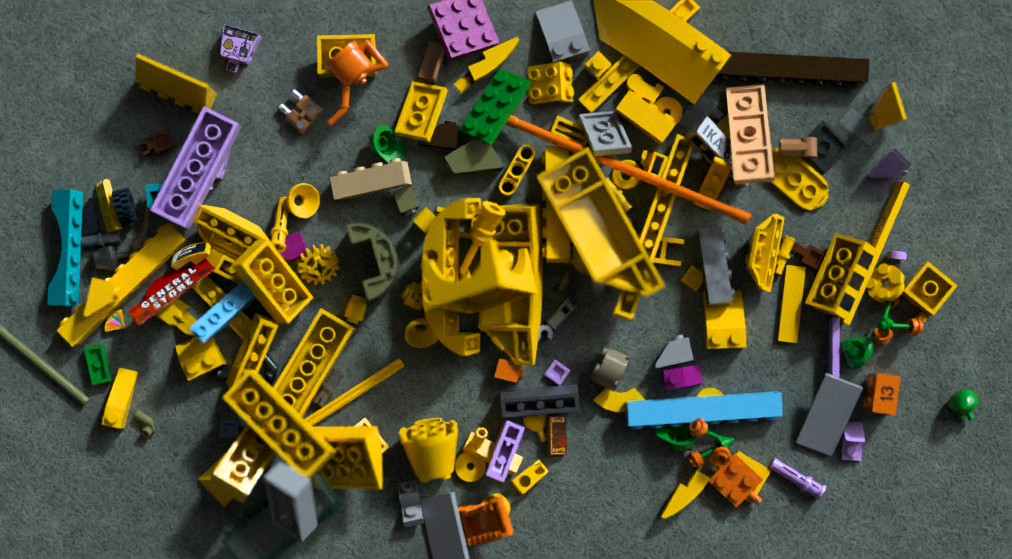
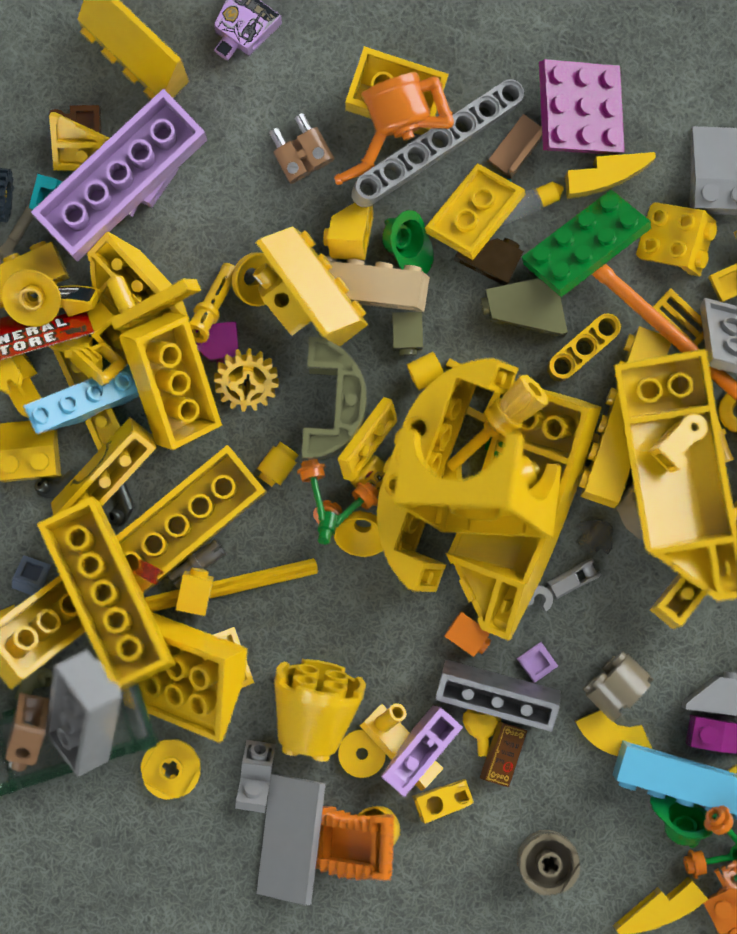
camera: 20 degrees right, 0 degrees up
(160, 157) = (72, 142): none -> yellow wing
(169, 269) = (24, 307): none -> yellow dish
(217, 285) = (89, 358): none -> yellow piece
(232, 249) = (133, 314): none -> yellow piece
(257, 491) = (40, 678): none -> olive arm
(261, 525) = (26, 739): none -> medium nougat torso
(300, 402) = (148, 572): none -> clear red bush
(323, 207) = (280, 300): none -> yellow torso
(333, 404) = (194, 591): none -> yellow brick
(337, 192) = (313, 284): none -> yellow slope
(349, 150) = (349, 232): none -> yellow slope
(364, 526) = (176, 785): none -> yellow plate
(379, 86) = (430, 154): none -> light grey beam
(397, 328) = (329, 514): none -> plant
(405, 274) = (367, 439): none -> yellow tile
(590, 208) = (677, 440): none -> yellow leg
(611, 500) = (553, 878): none -> dark tan brick

